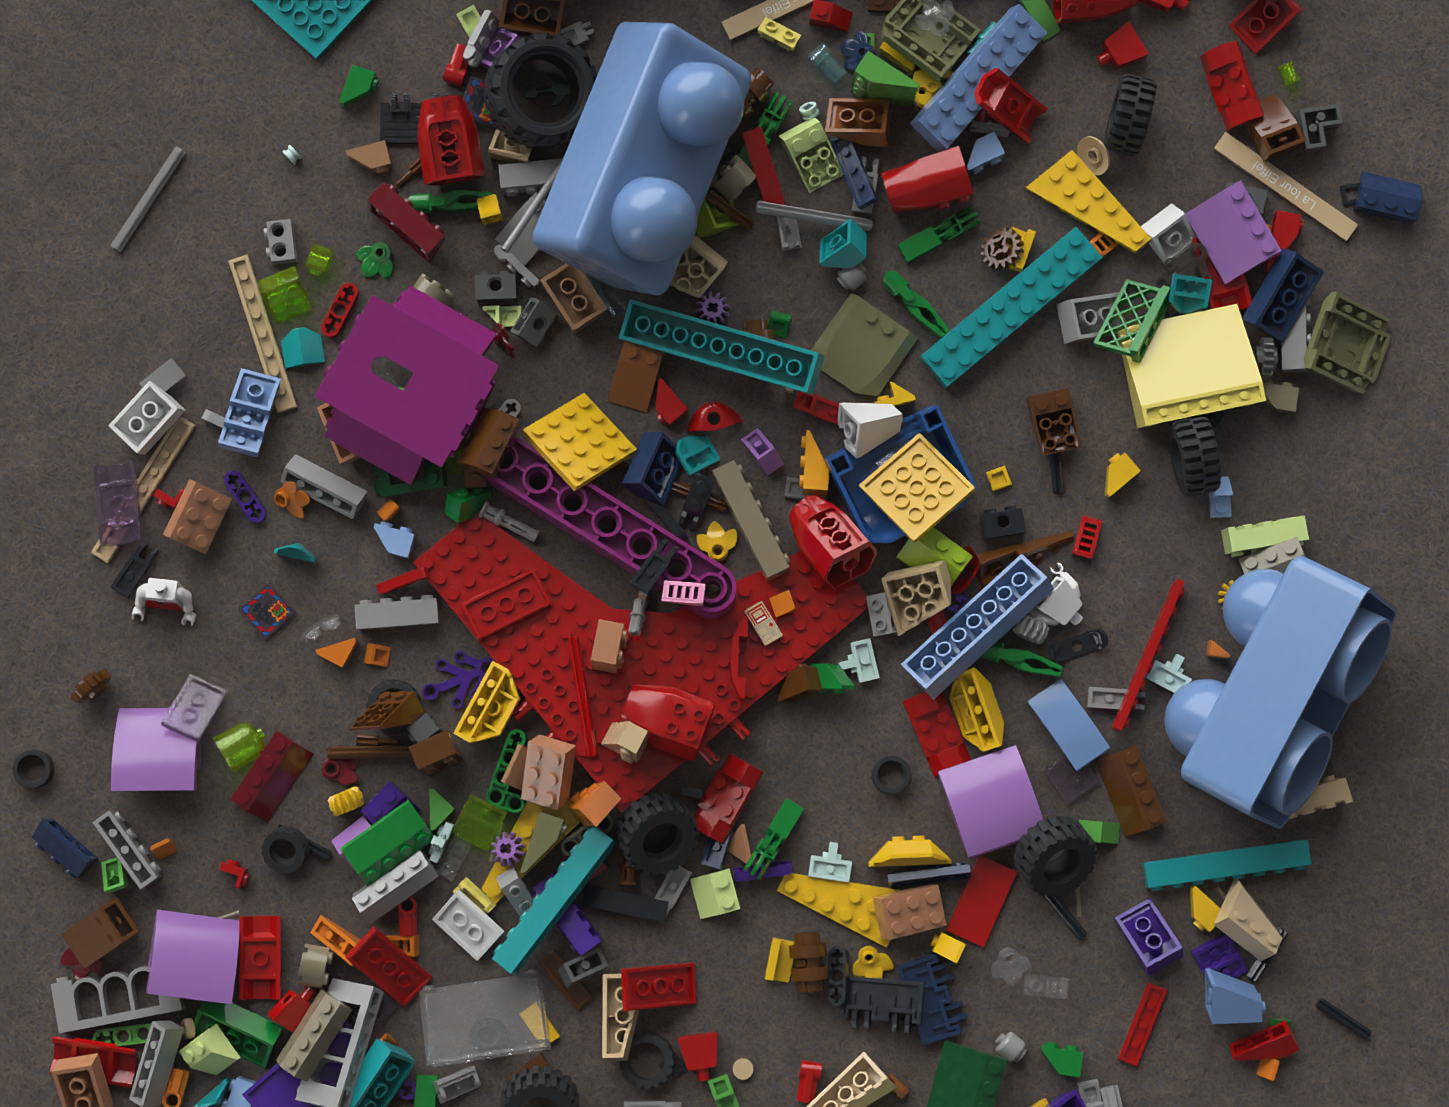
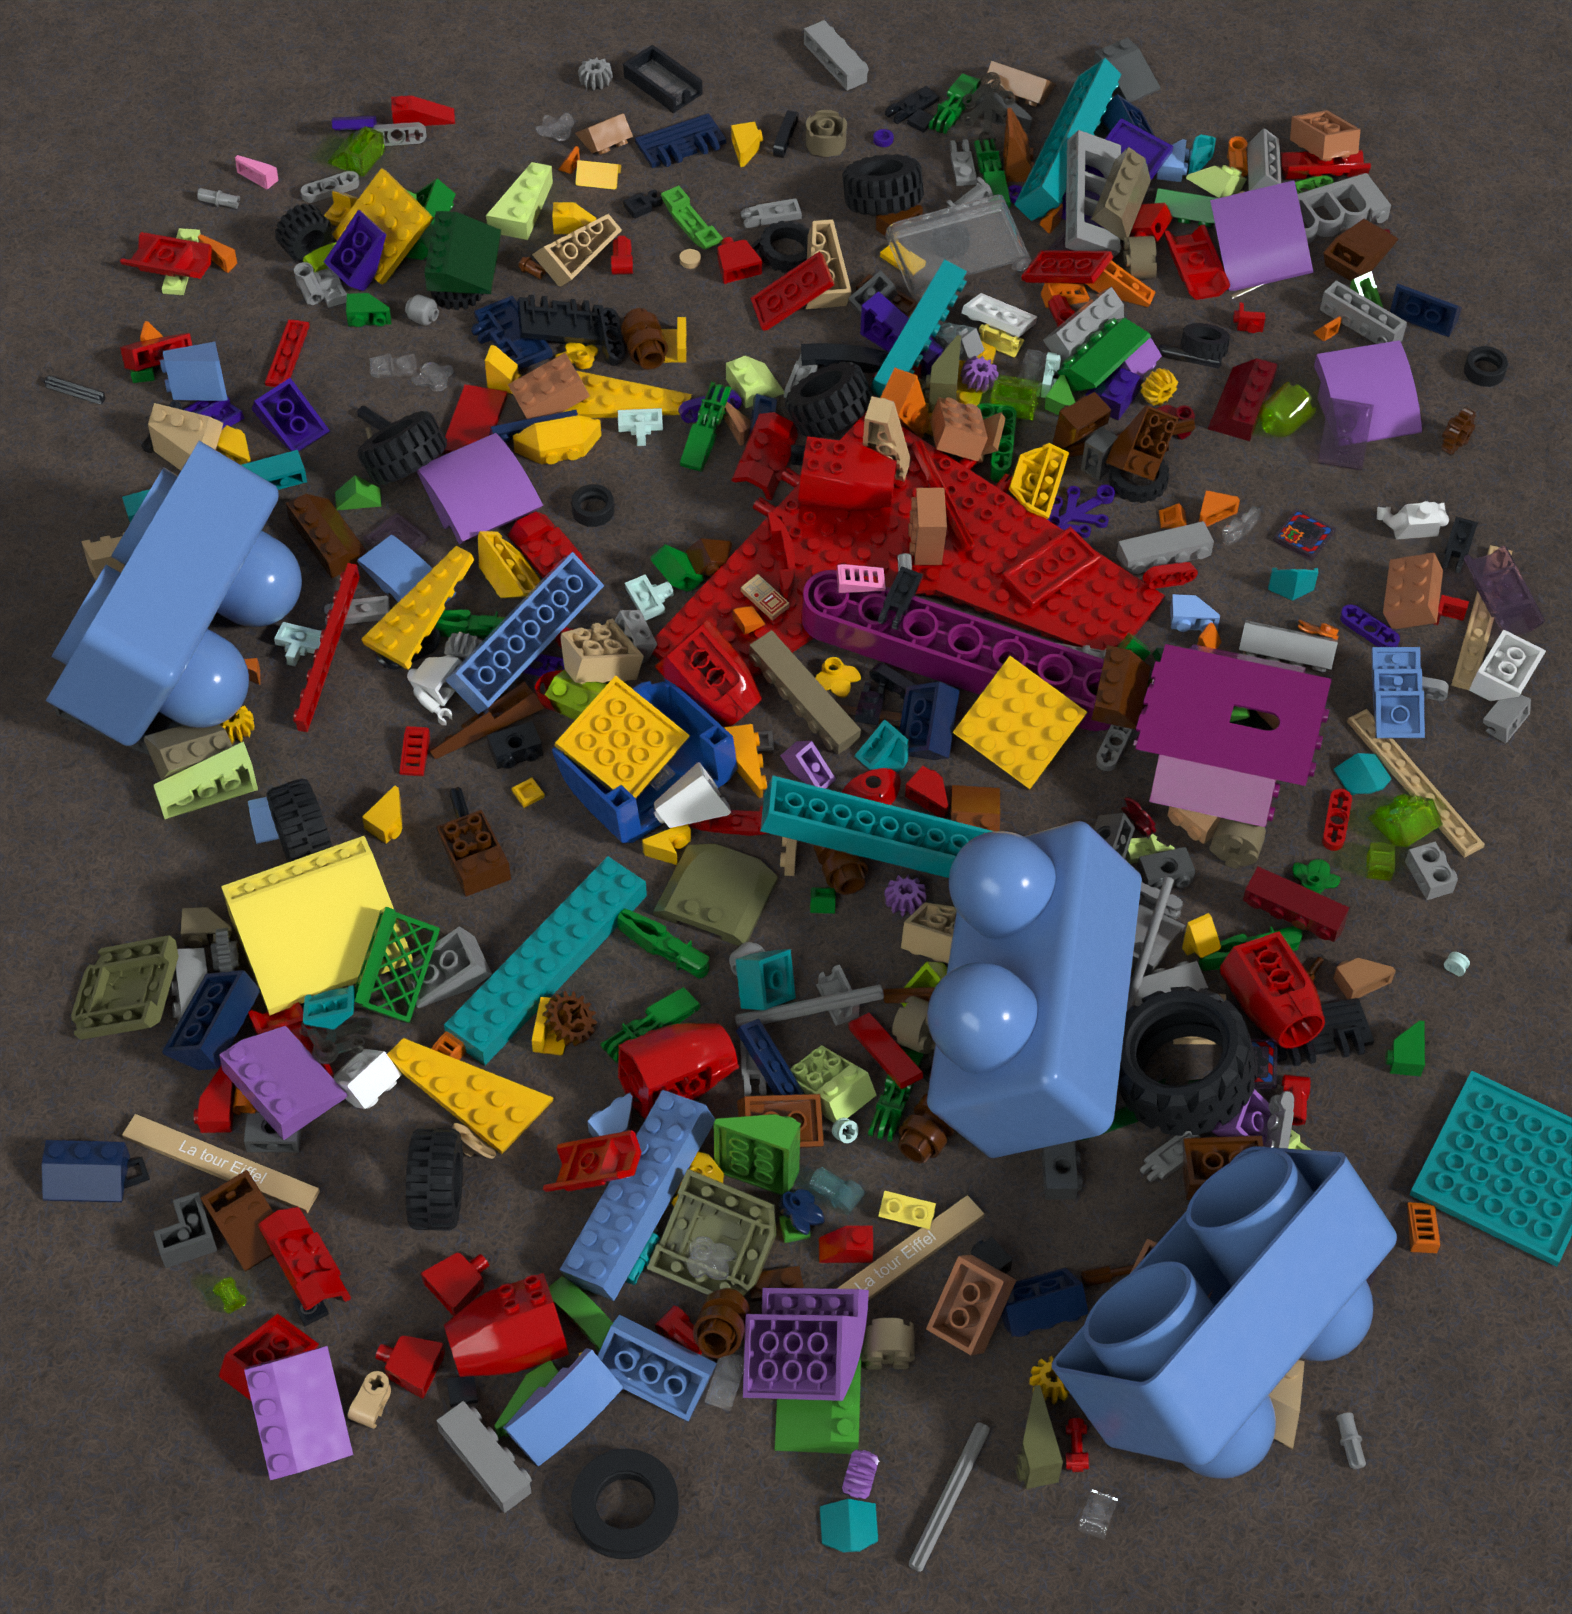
camera: 170 degrees right, 30 degrees down
(1069, 671) = (416, 614): none -> yellow wing

